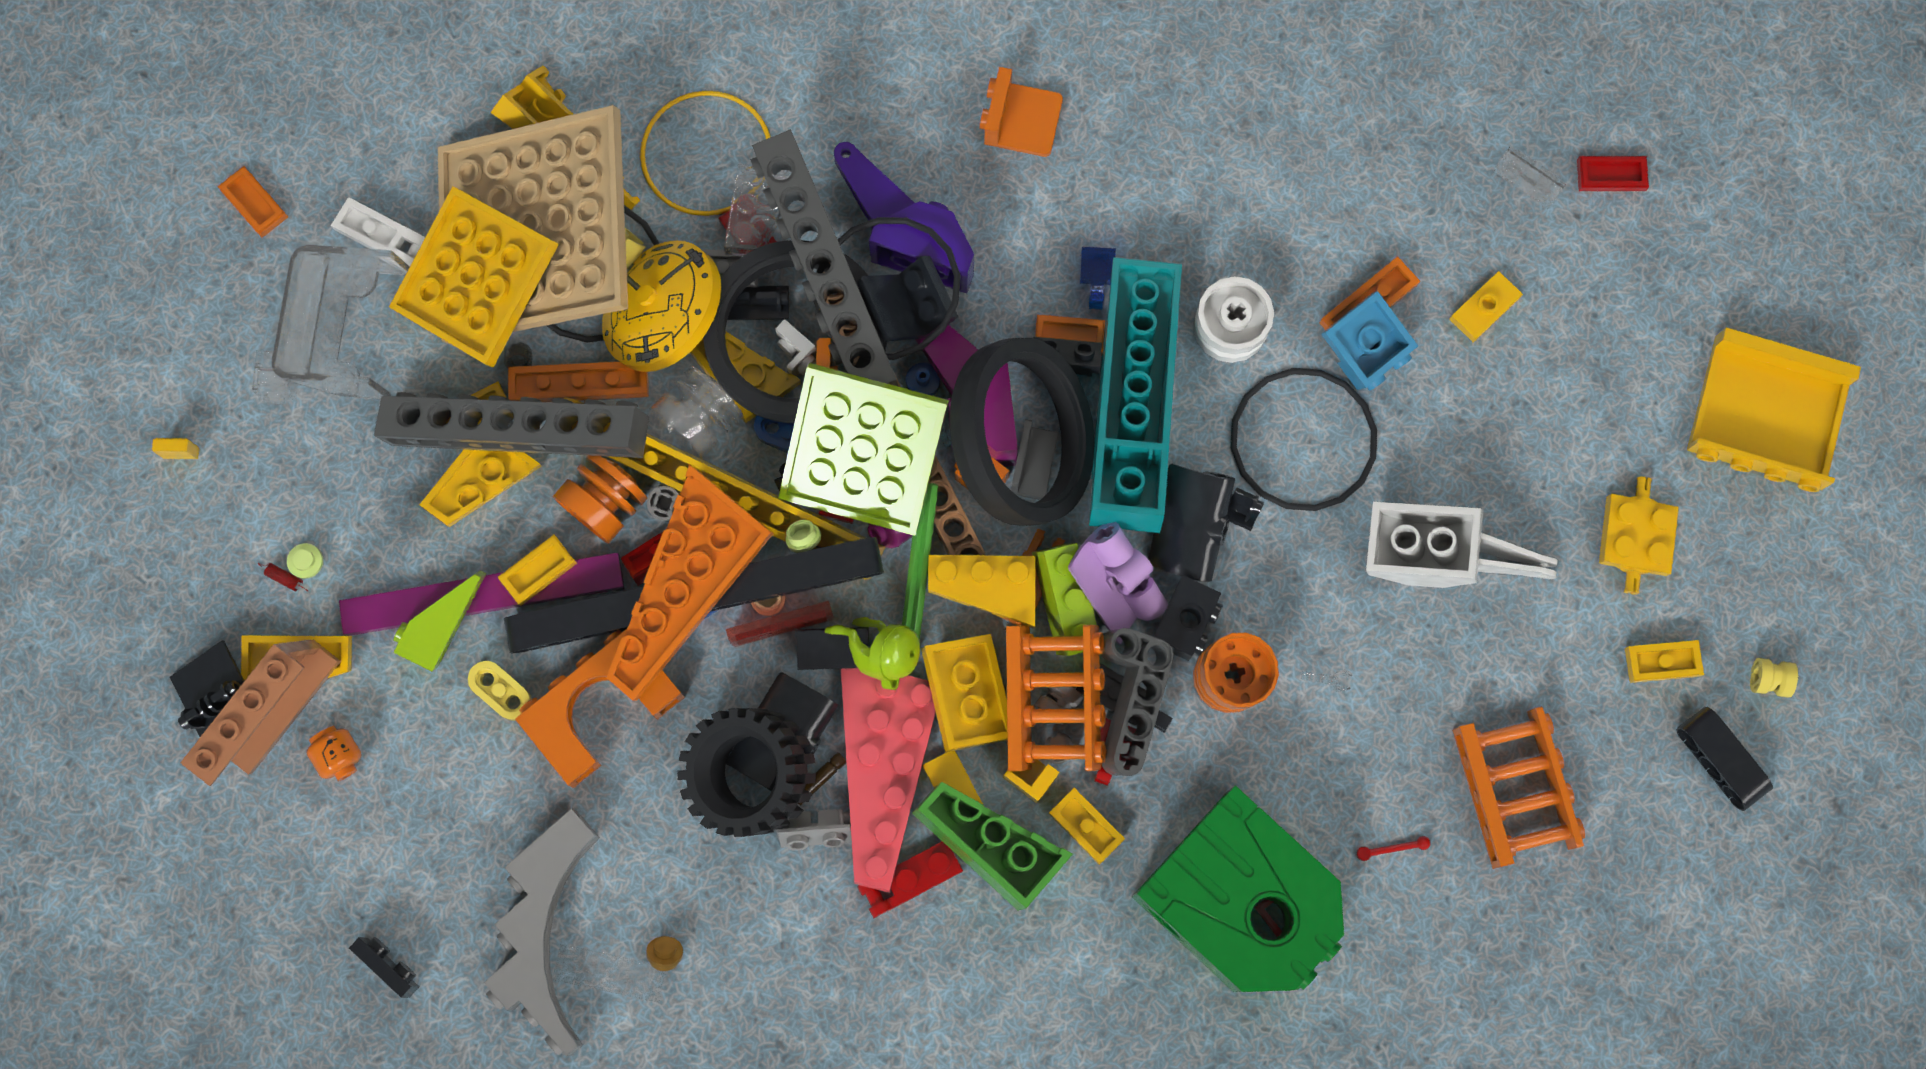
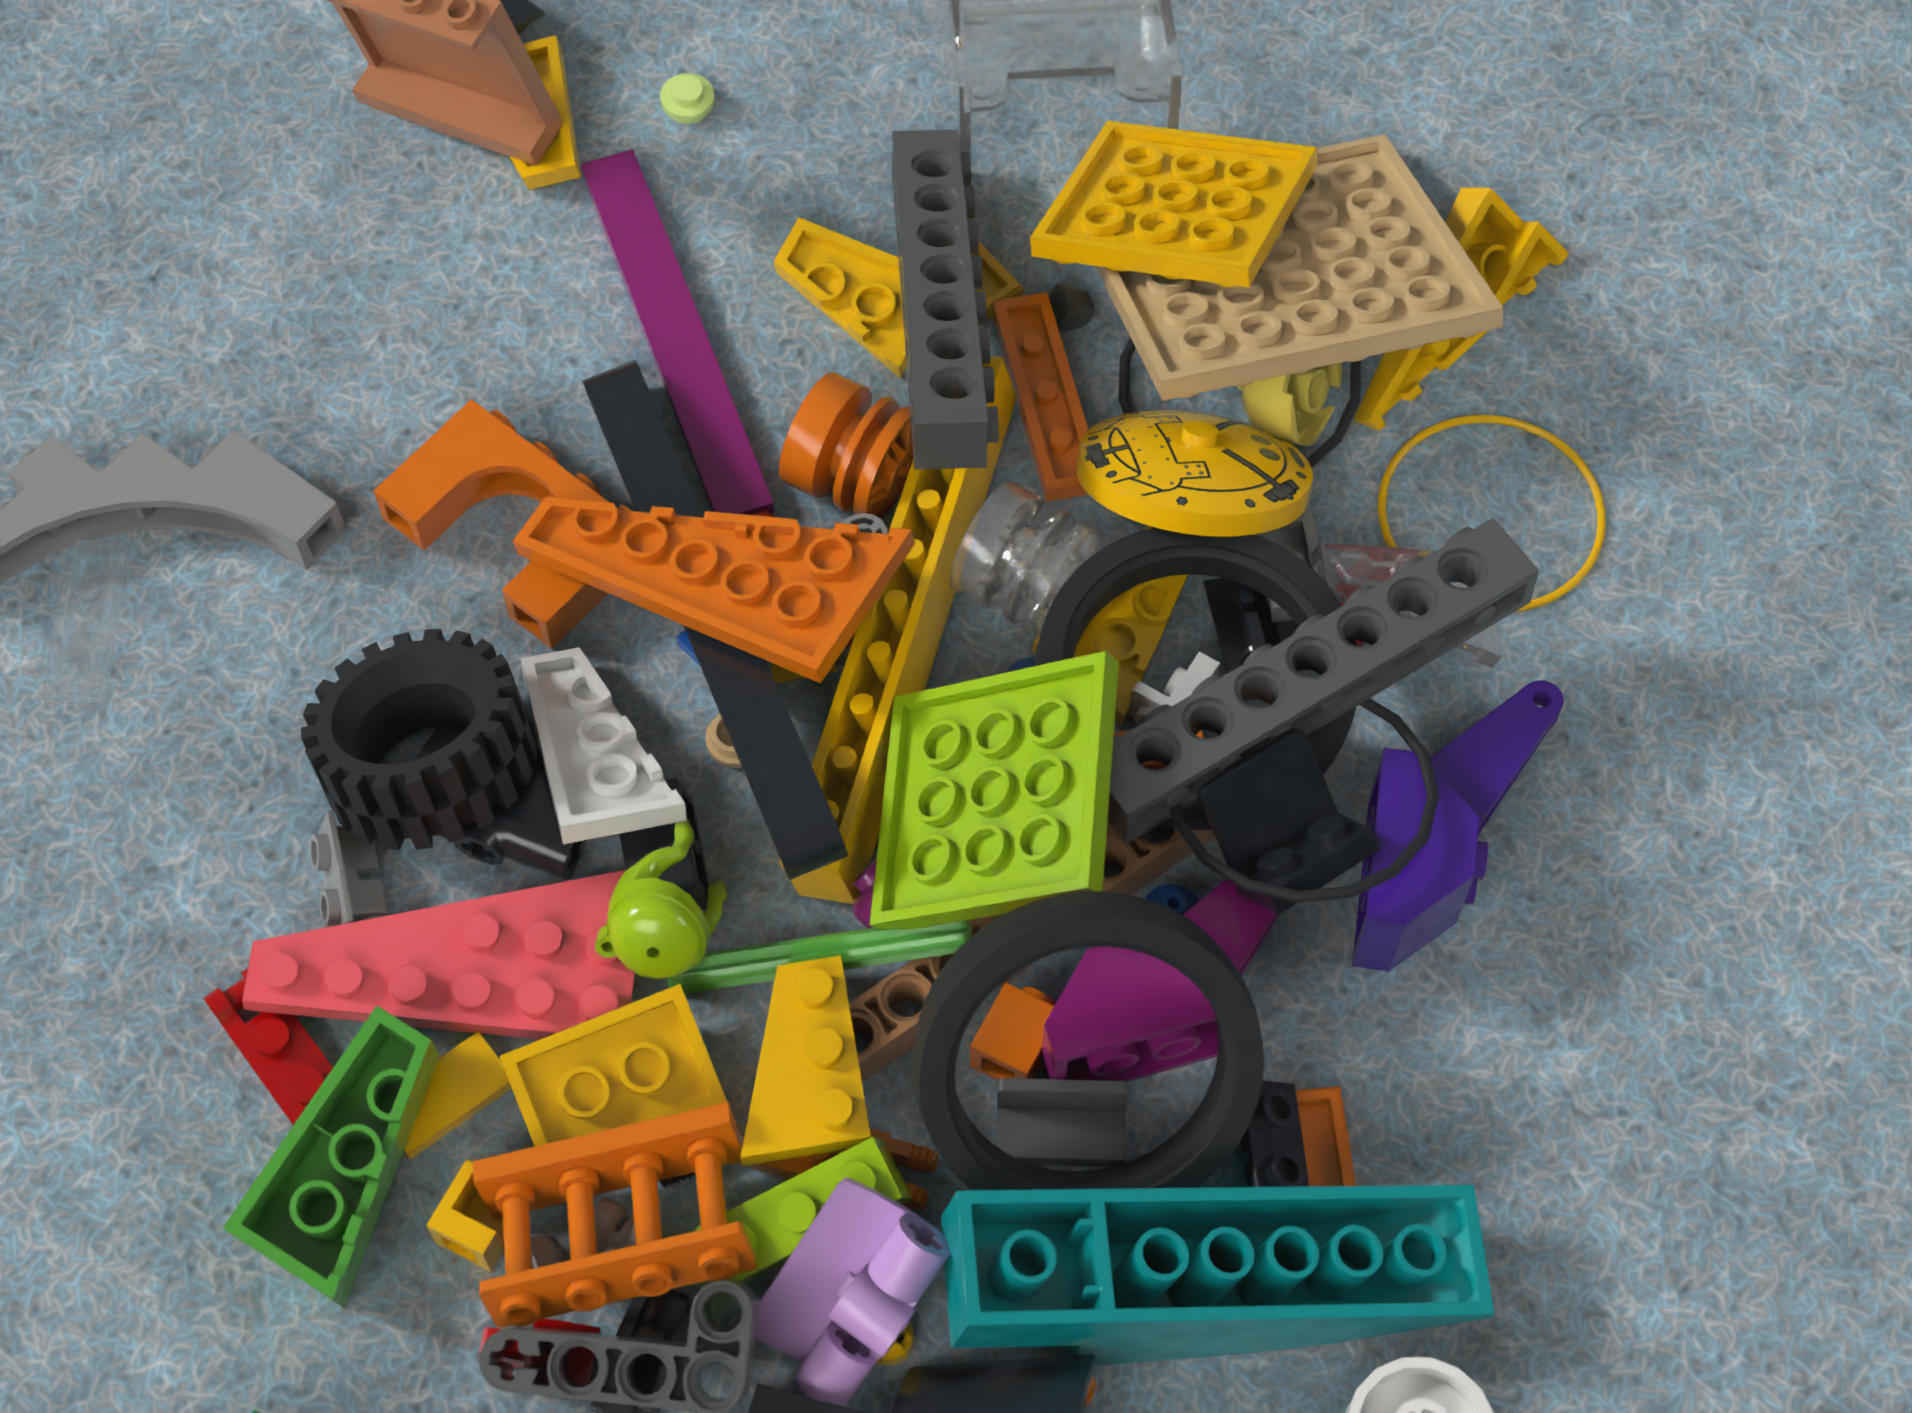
camera: 80 degrees right, 15 degrees down
(282, 576) = (659, 74): red piece -> none
(334, 753) = (392, 184): orange head -> none
(374, 955) = (72, 311): black plate -> none
(376, 230) = (1226, 80): white plate -> none
(432, 631) = (597, 269): lime slope -> none
(500, 691) = (517, 385): light yellow plate -> none
(537, 570) = (722, 393): yellow tile -> none
(664, 953) = (120, 688): pearl gold plate -> none
(780, 624) = (691, 761): clear red tile -> none
(782, 675) = (591, 753): none -> white wing
(802, 536) = (830, 740): yellowish green plate -> none
(826, 773) = (436, 872): dark brown wheel -> none
(1020, 116) = (1709, 988): orange bracket -> none
(1086, 826) = (398, 1331): yellow plate -> none
(1096, 271) = (1452, 1165): clear blue plate -> none

